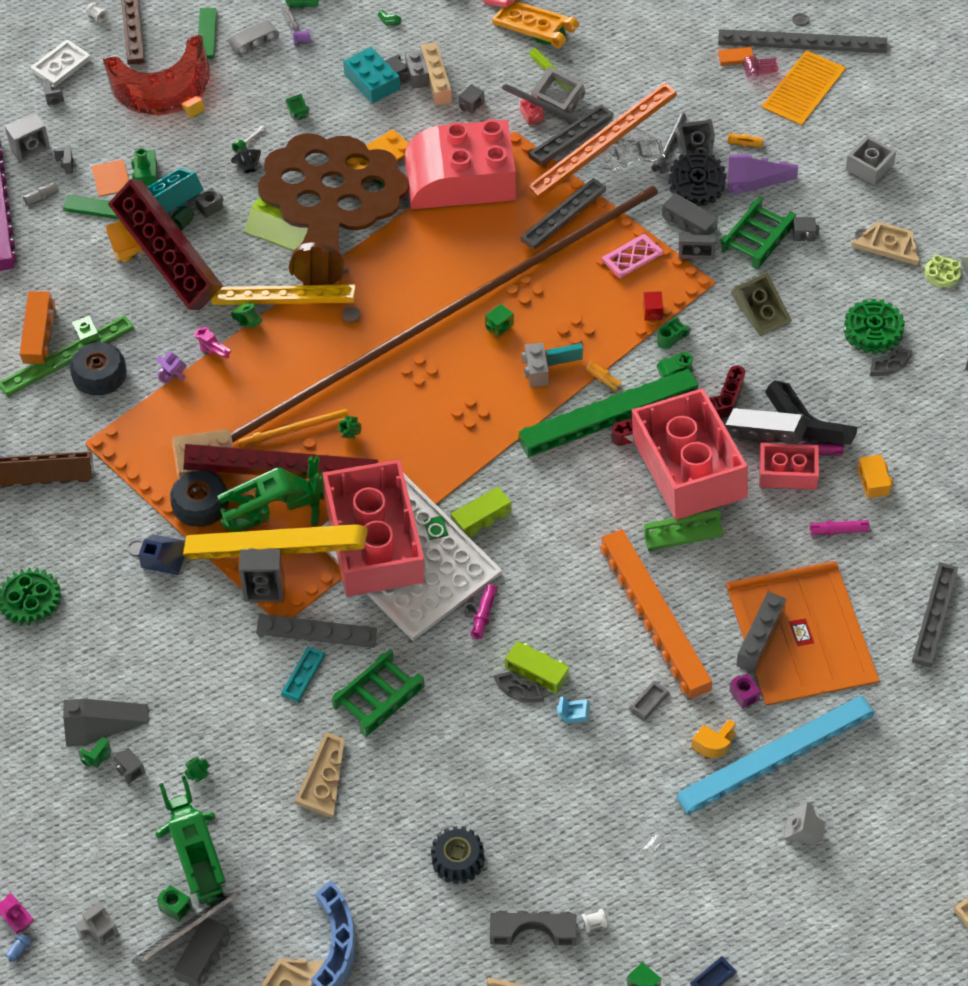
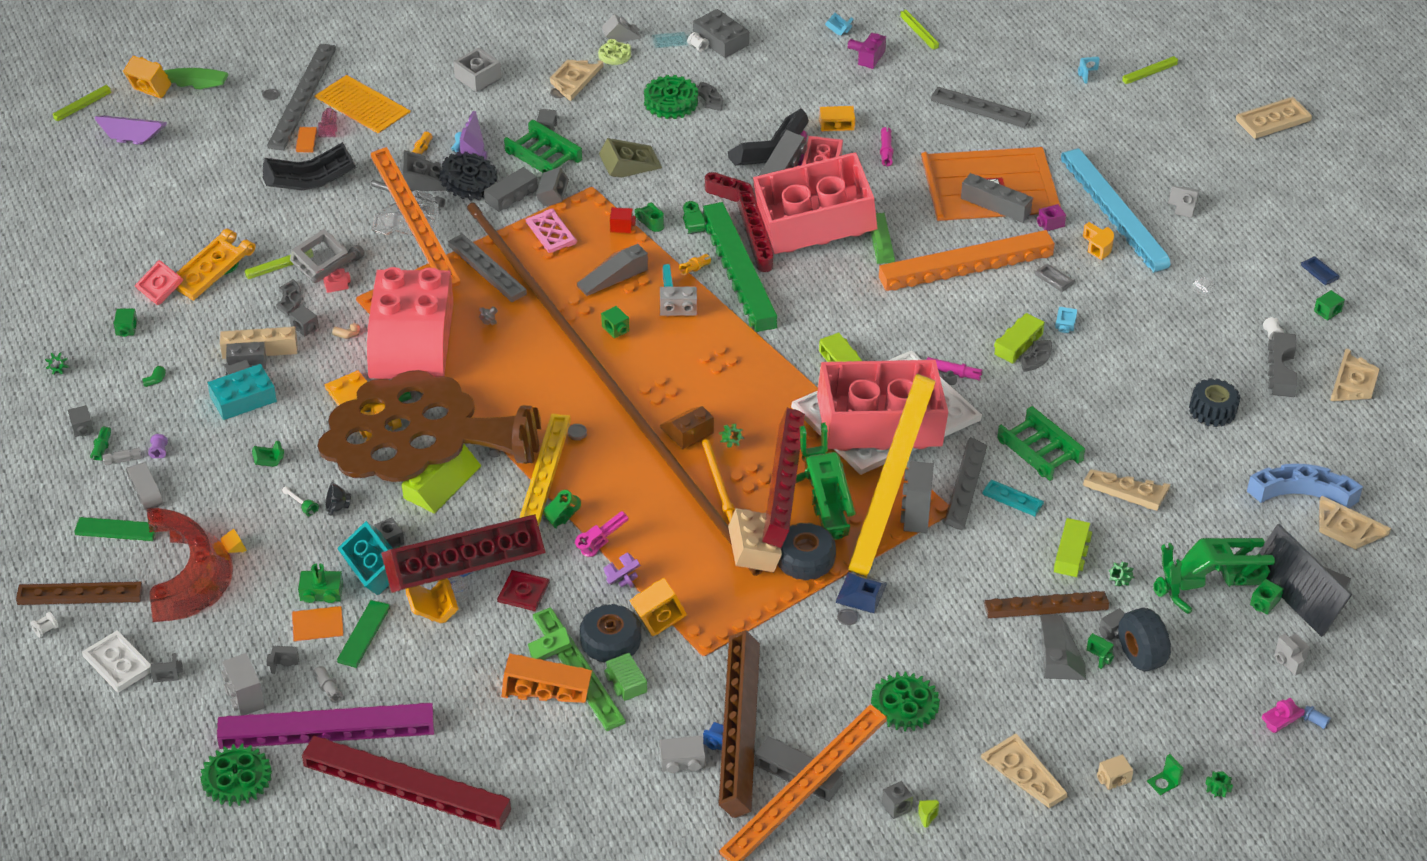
camera: 85 degrees left, 10 degrees down
(52, 387) = (626, 677): none -> bright green brick
(96, 782) = (1144, 639): none -> black wheel
(120, 393) = (658, 607): none -> light orange brick
(154, 306) = (523, 590): none -> dark red tile
(158, 708) = (1046, 604): none -> reddish brown plate
(231, 725) = (1073, 547): none -> lime brick
(362, 393) = (689, 426): none -> reddish brown slope
(493, 224) = (488, 316): none -> flat silver plant
(495, 86) = (291, 297): none -> dark grey tile
(570, 135) = (374, 248): dark grey plate -> none
(582, 313) = (615, 269): none -> dark grey wedge
(671, 55) = (308, 173): none -> black piece

